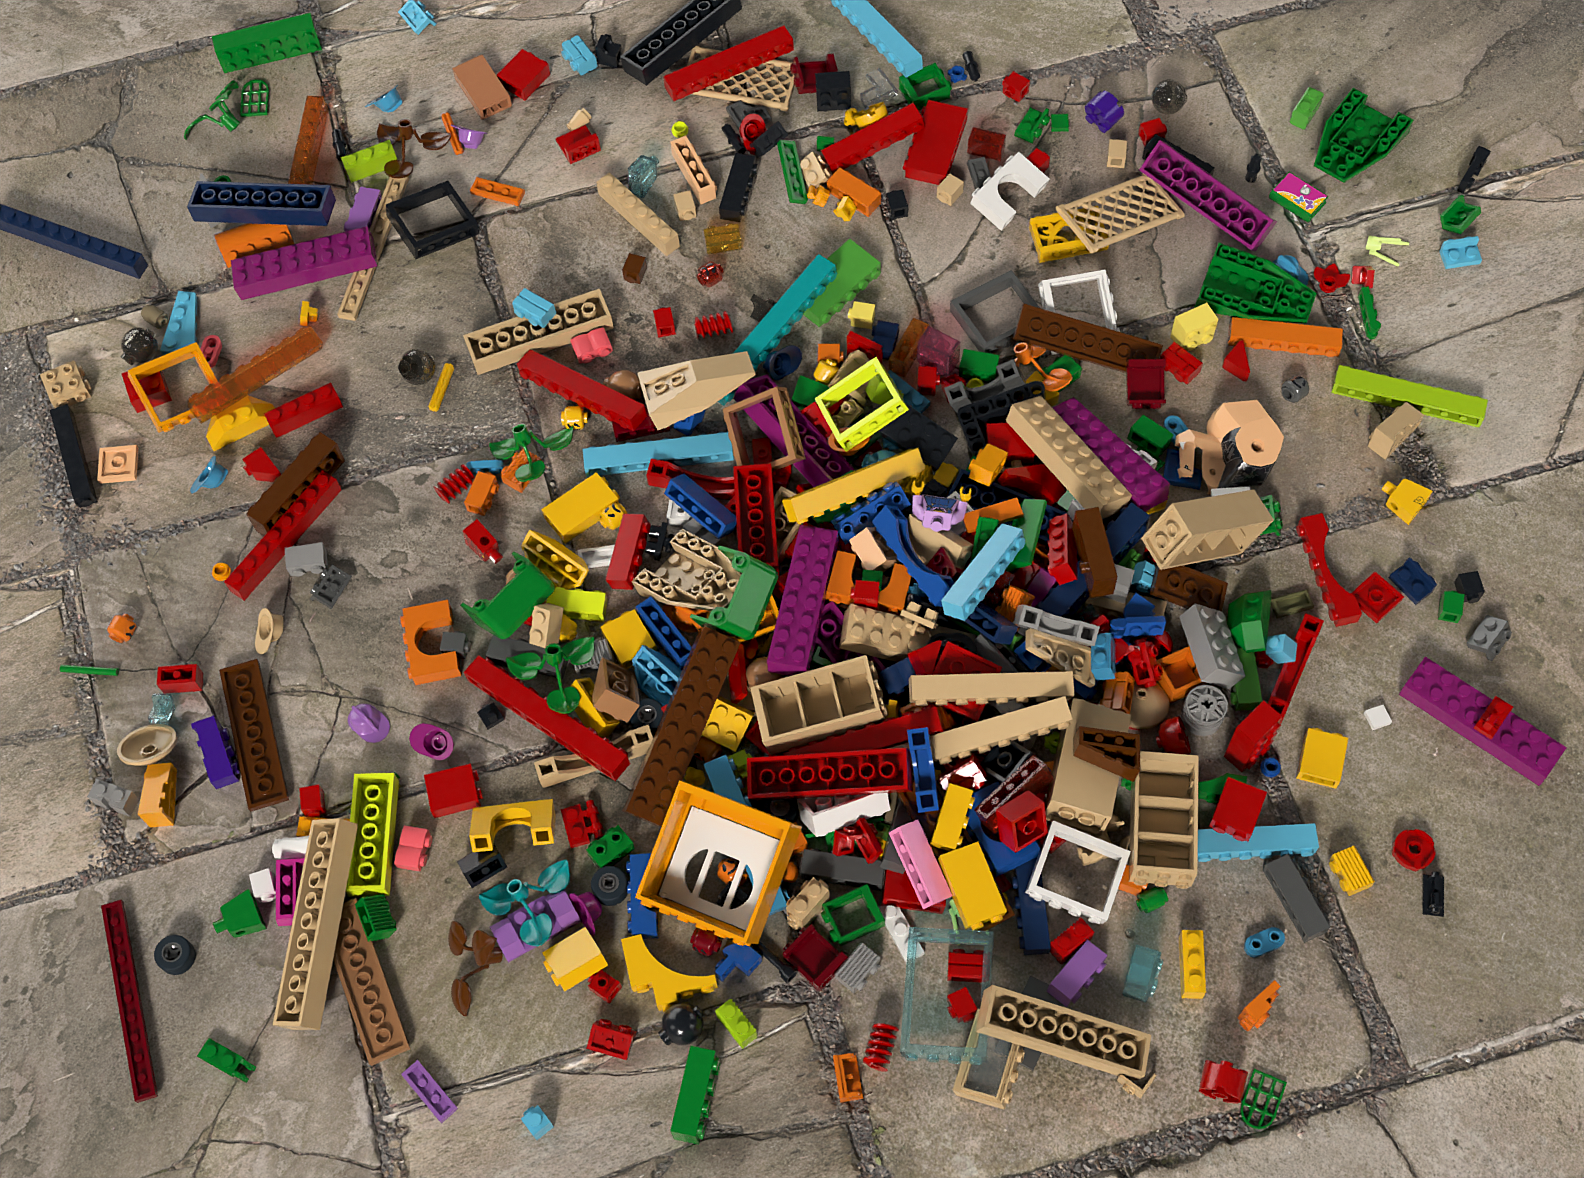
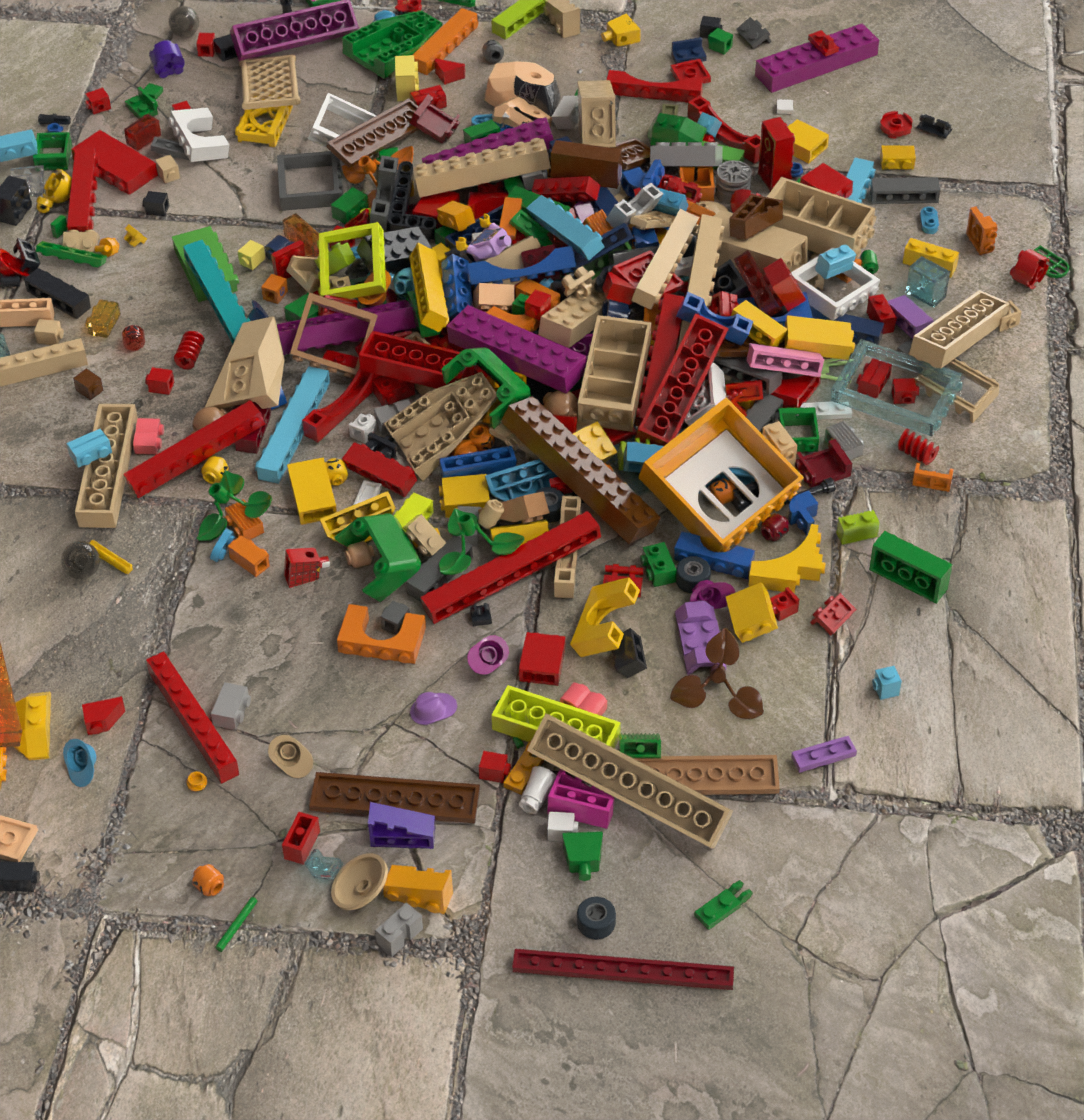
camera: 70 degrees left, 15 degrees down
(303, 410) = (60, 665): red brick -> none
(319, 455) = (148, 688): reddish brown brick -> none
(330, 587) = (271, 696): dark grey bracket -> none
(454, 483) = (226, 570): red piece -> none
(499, 899) = (667, 612): teal plant -> none
(590, 670) = (490, 513): none -> tan brick
(681, 1024) = (843, 561): black brick -> none
(701, 506) = (373, 400): blue brick -> none
(761, 307) = (201, 310): clear smoke brick -> none
(825, 371) = (290, 291): yellow head -> none
(862, 195) = (115, 224): orange brick -> none
(938, 351) = (323, 214): clear pink brick -> none
(1095, 862) = (835, 261): none -> medium azure brick
(1116, 153) = (210, 69): tan brick -> none

